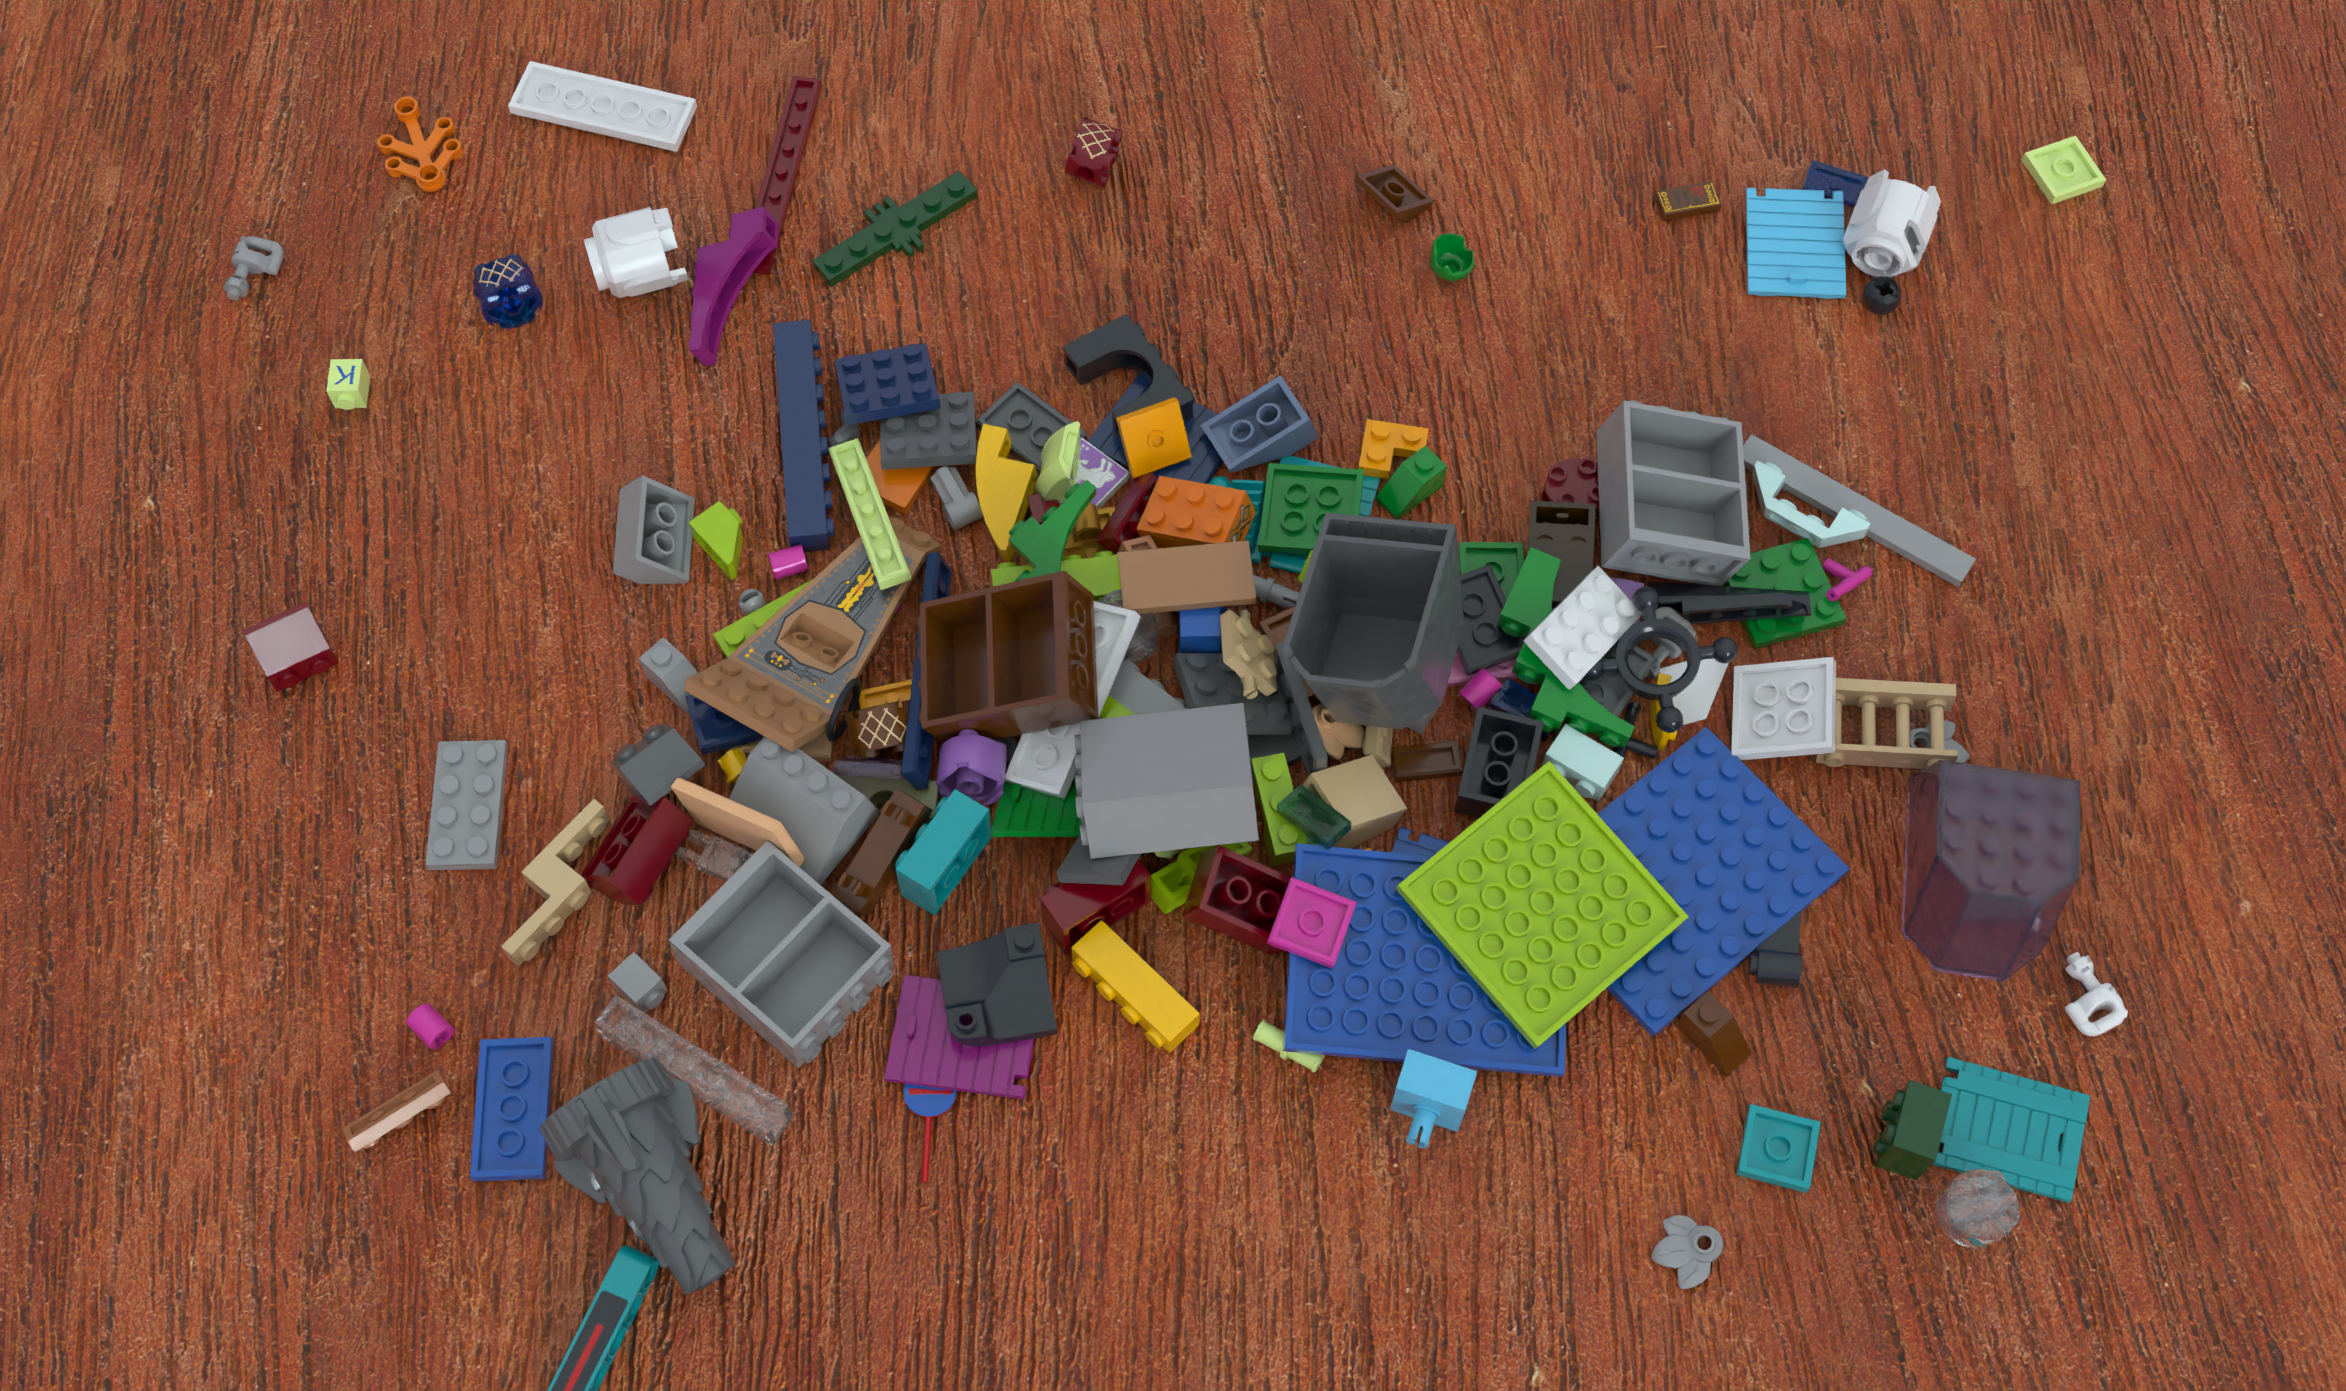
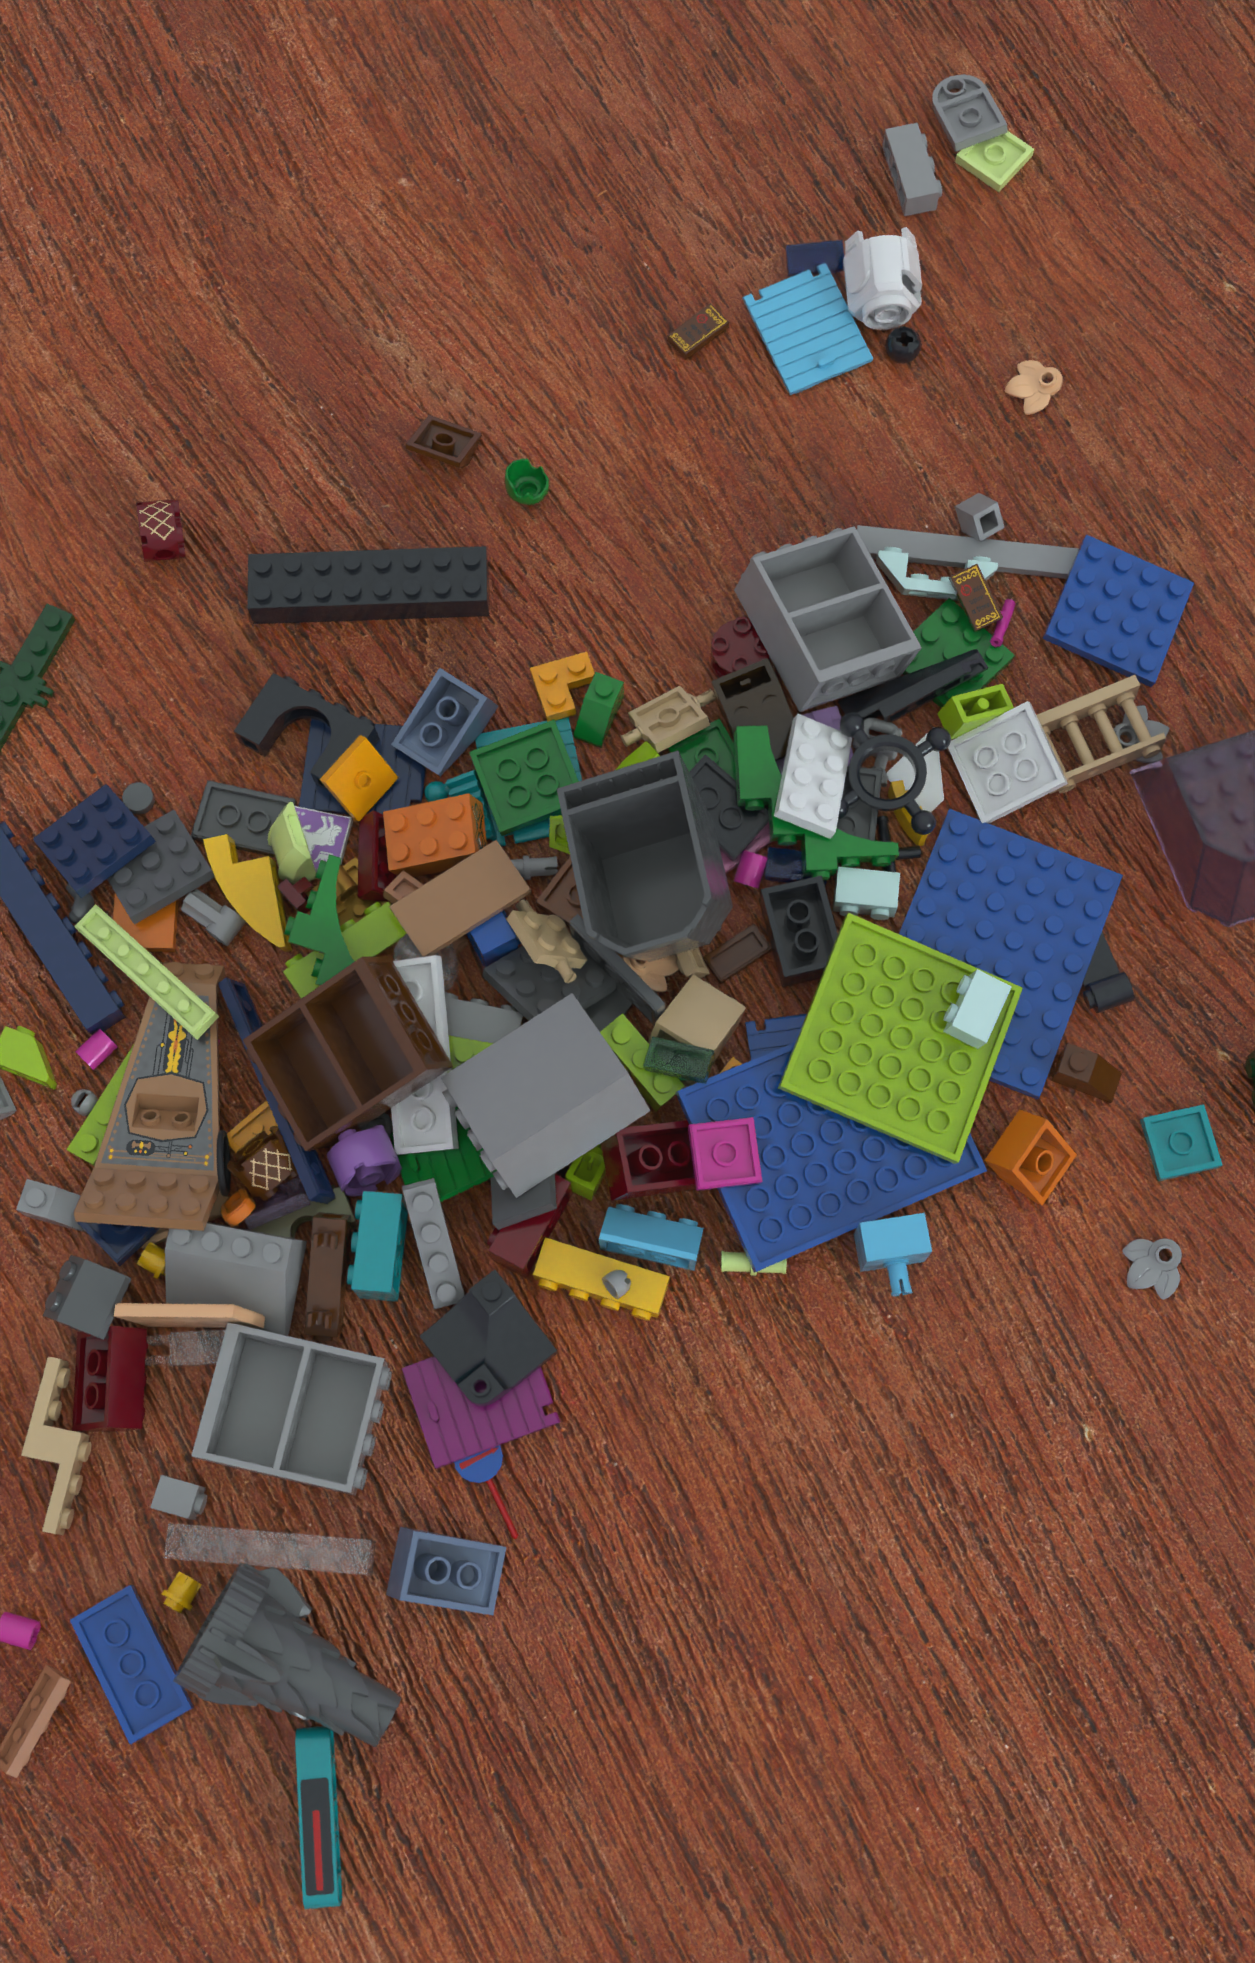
camera: 25 degrees left, 10 degrees up
(592, 1068) = (181, 1592): none -> yellow hose
(834, 752) = (237, 1207): none -> orange tile
(843, 1176) = (446, 1571): none -> sand blue slope
(947, 369) = (138, 798): none -> dark grey tile
(994, 871) = (433, 1243): none -> light grey plate
(1144, 993) = (617, 1283): none -> light grey hinge
(1201, 972) = (651, 1237): none -> medium azure slope
(1257, 281) = (368, 585): none -> black brick
(1477, 519) = (669, 718): none -> tan plate
(1617, 1084) = (1031, 1156): none -> orange slope
(1630, 908) = (976, 1008): none -> light aqua brick
(1775, 642) = (974, 709): none -> lime brick
(1832, 545) = (975, 597): none -> reddish brown tile
(1875, 477) = (979, 516): none -> light grey brick
(1973, 147) = (911, 169): none -> light grey brick
(1973, 625) = (1118, 610): none -> blue plate
(1993, 387) = (1031, 385): none -> light nougat plate
(2055, 123) = (969, 114): none -> light grey tile

